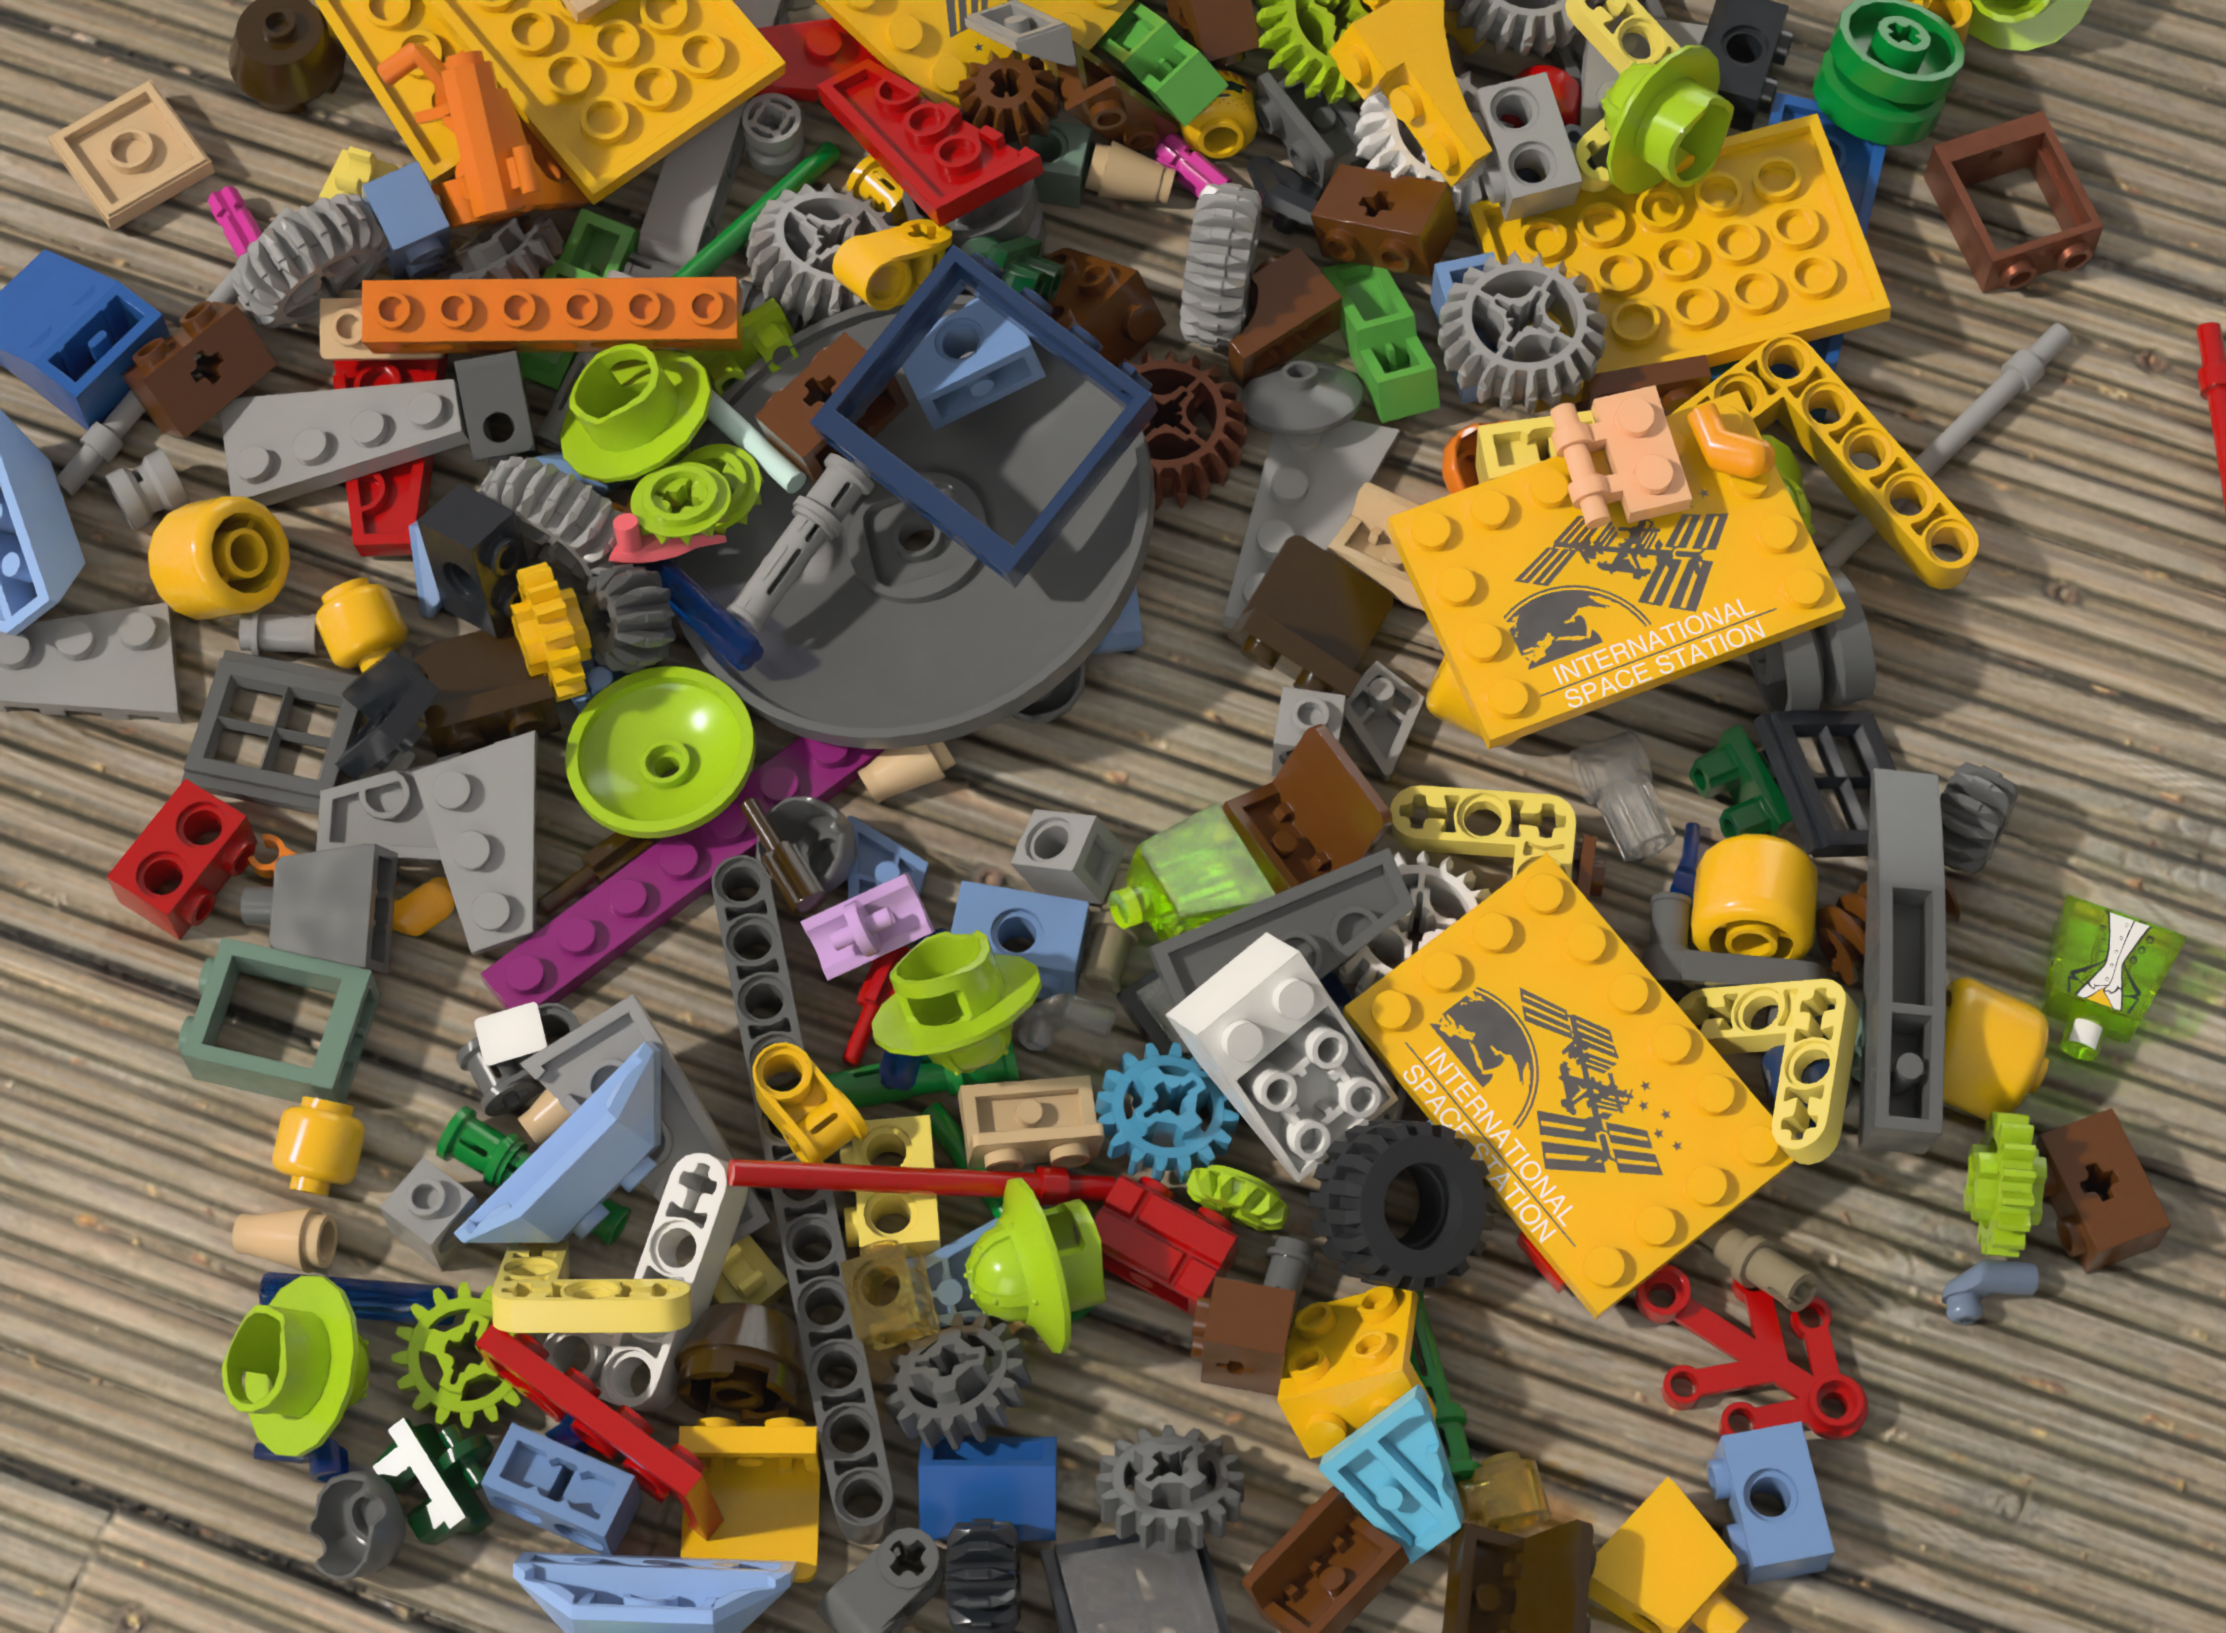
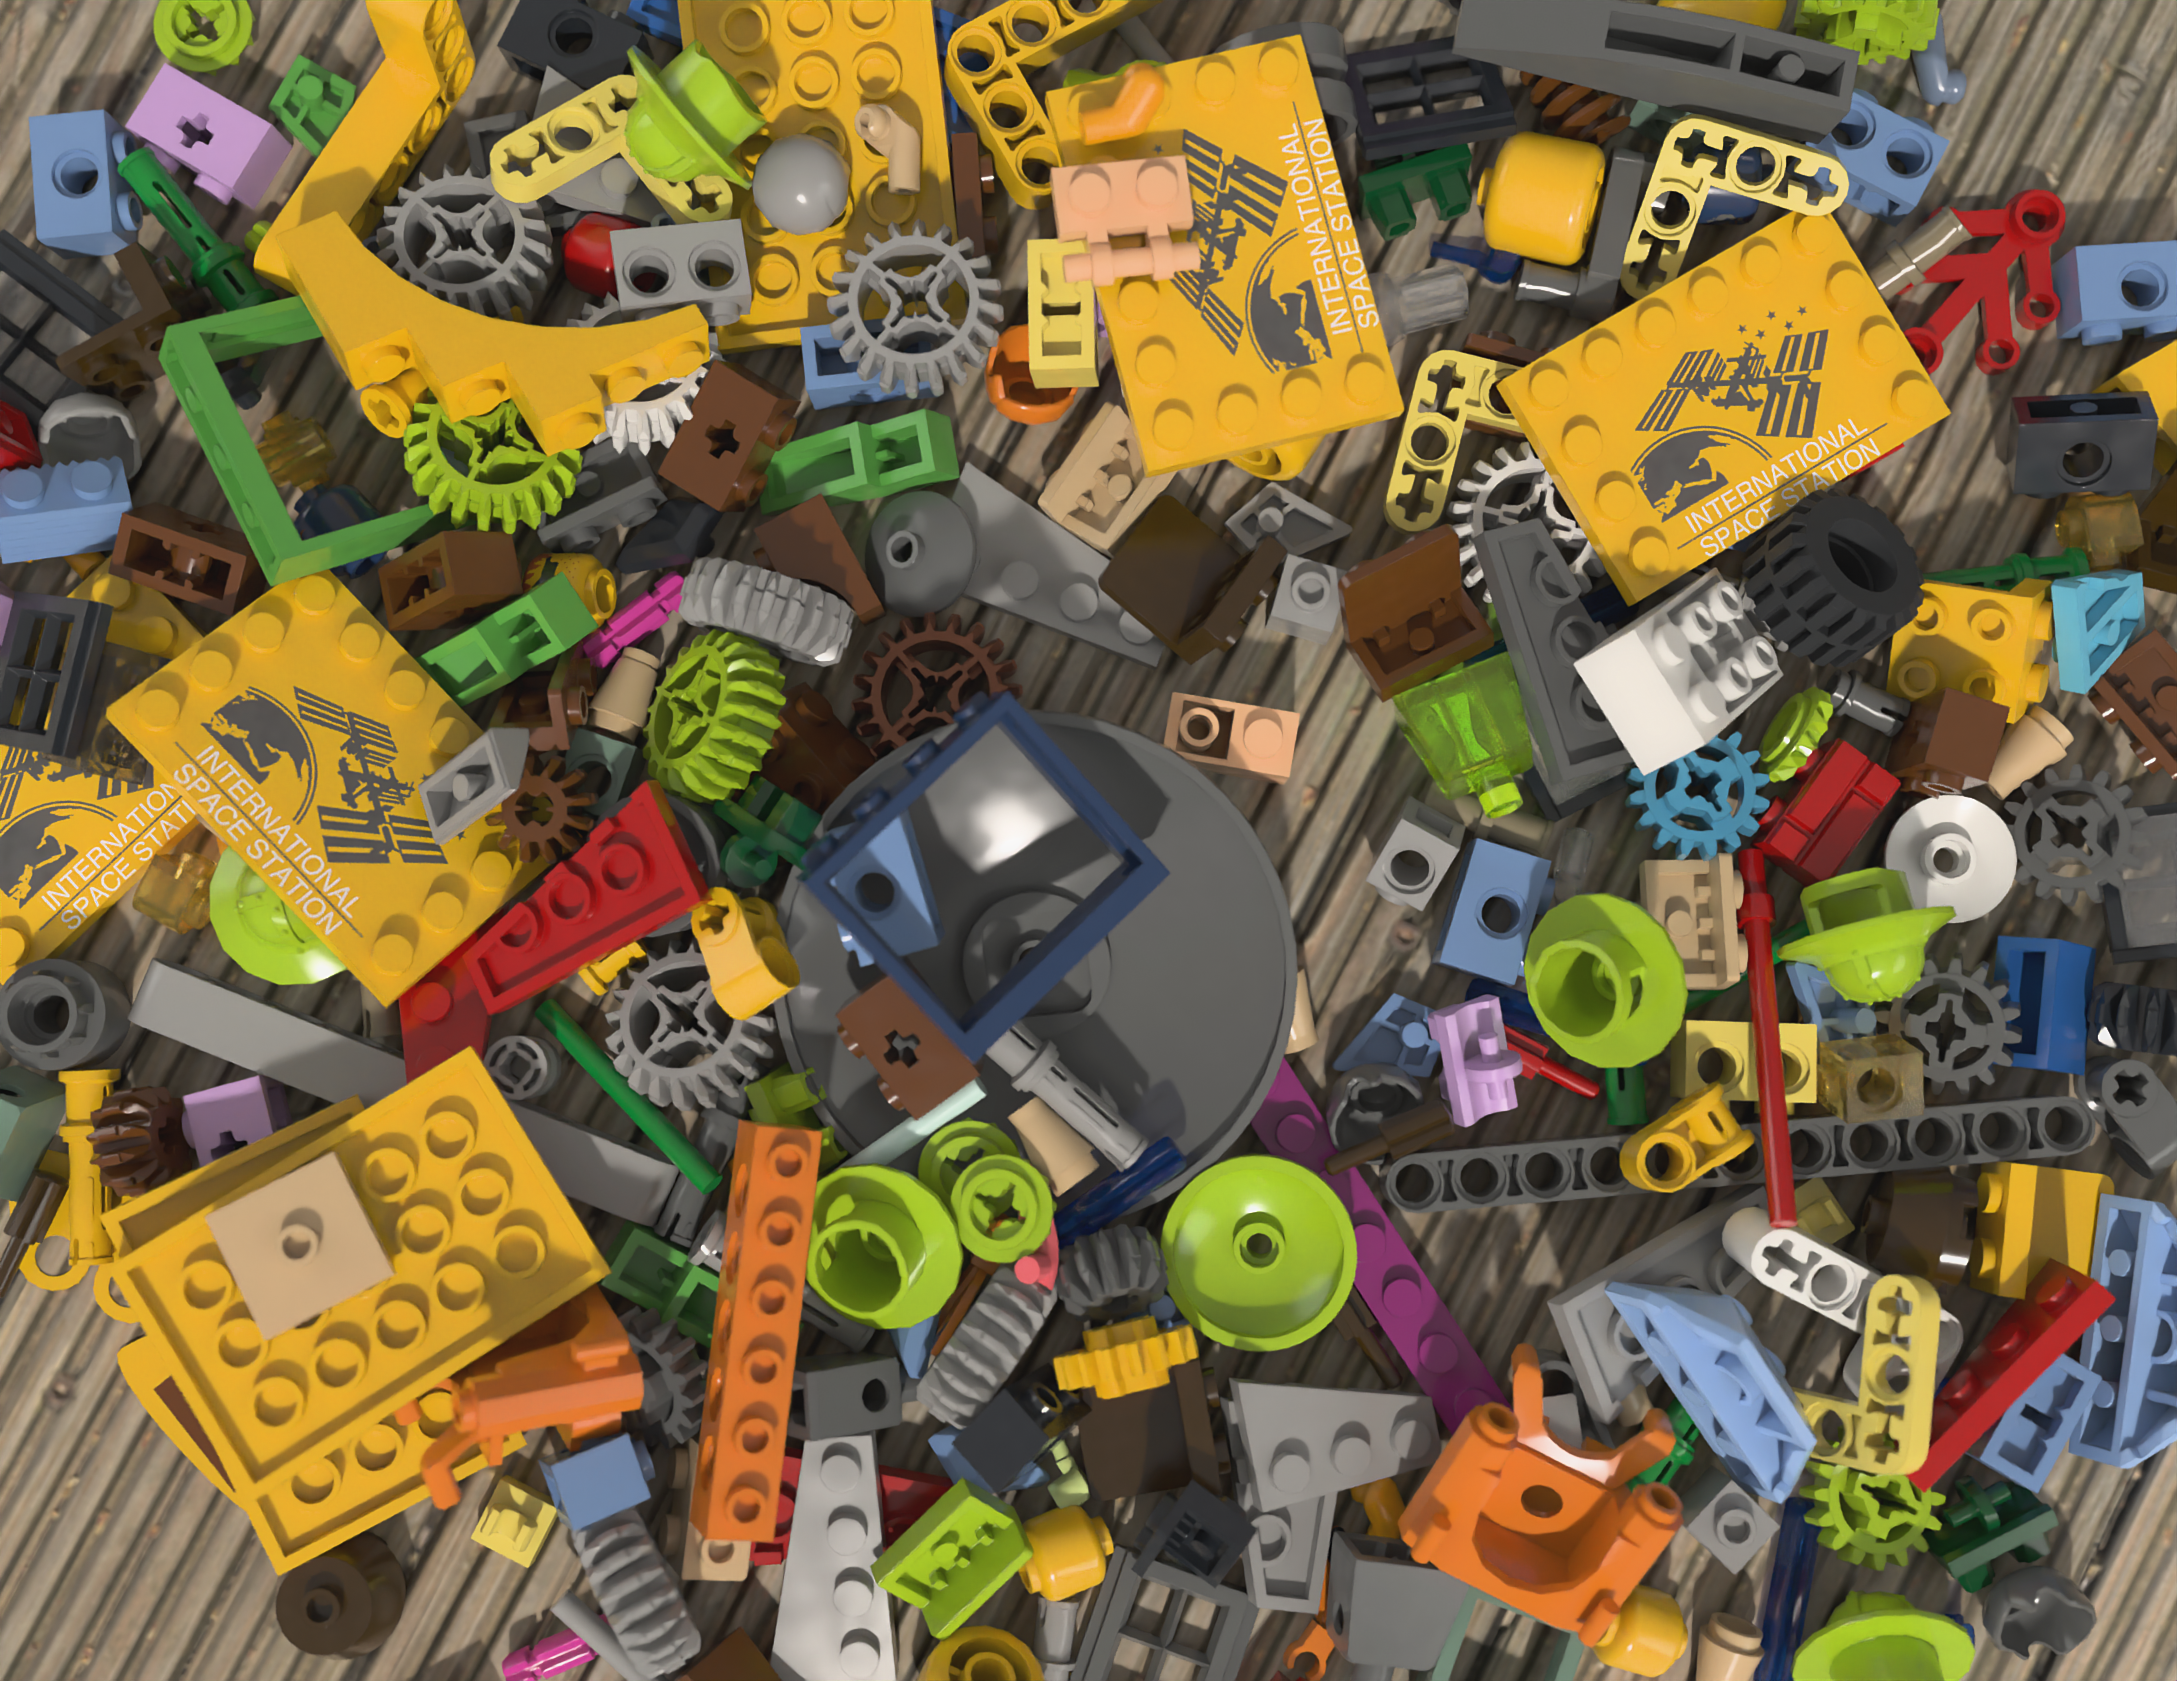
camera: 80 degrees left, 20 degrees up
(355, 518) = (955, 1556): none -> lime bracket
(423, 632) = (1072, 1485): none -> yellowish green hand
(428, 998) = (1542, 1518): none -> orange piece
(738, 551) = (1053, 1145): none -> tan cone
(1113, 229) = (714, 717): none -> lime gear
(1123, 1345) = (1980, 852): none -> white dish
(1159, 681) = (1232, 737): none -> light nougat slope
(1264, 1447) = (2027, 750): none -> tan cone
(1588, 1446) = (2047, 426): none -> black brick
(1634, 238) = (801, 184): none -> light grey hair
(1689, 308) = (896, 141): none -> tan arm
(1861, 1219) = (1874, 136): none -> medium blue brick

